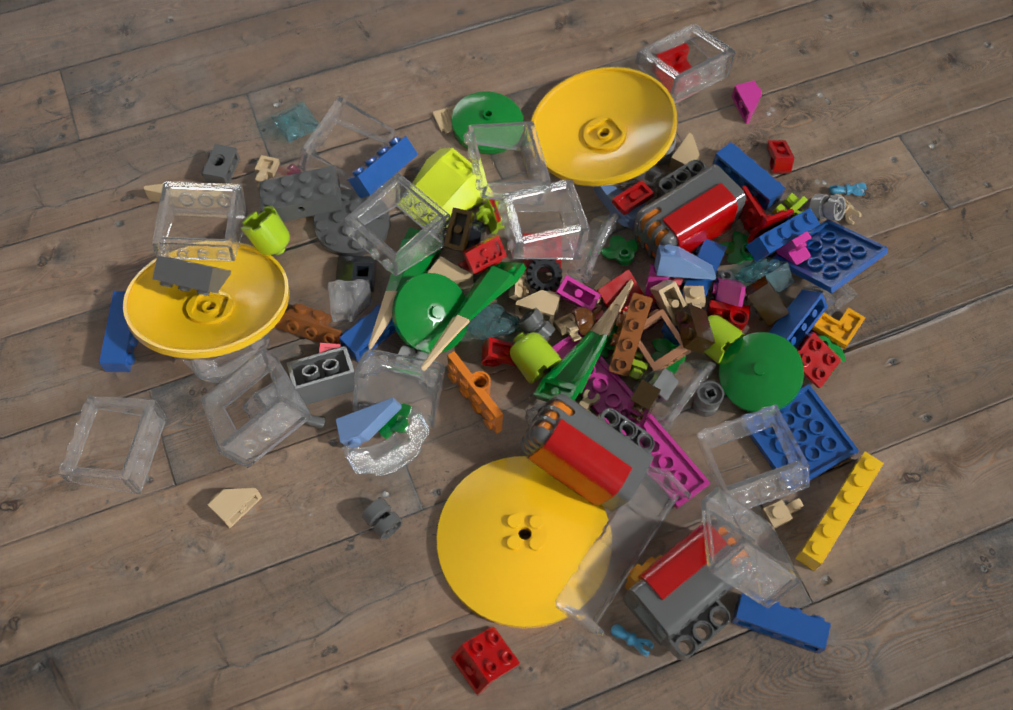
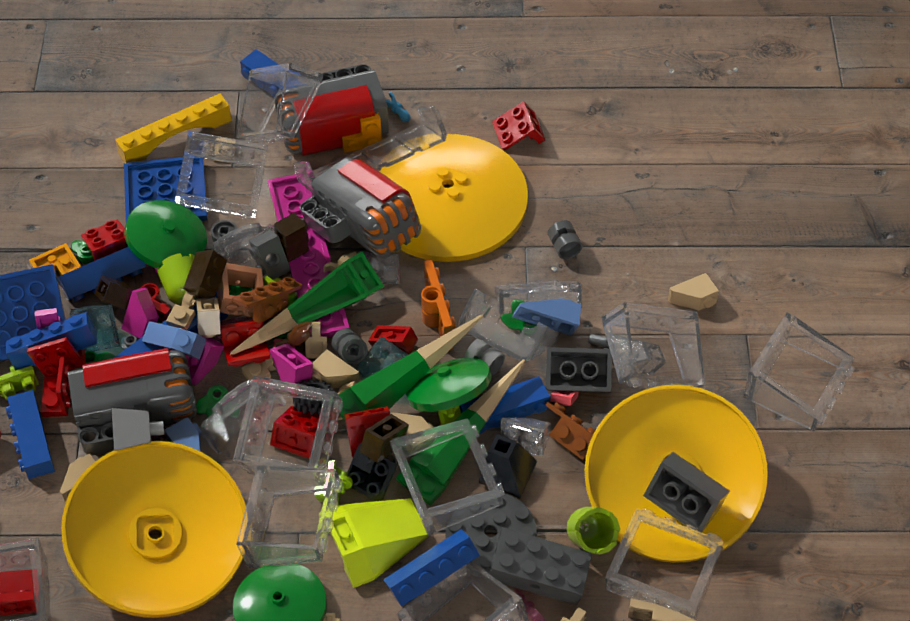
camera: 155 degrees left, 10 degrees down
(118, 342) = (781, 471): blue brick -> none
(533, 355) = (366, 312): lime cylinder -> none
(632, 197) = (180, 430): red plate -> none
(662, 171) = (133, 428): none -> light grey torso

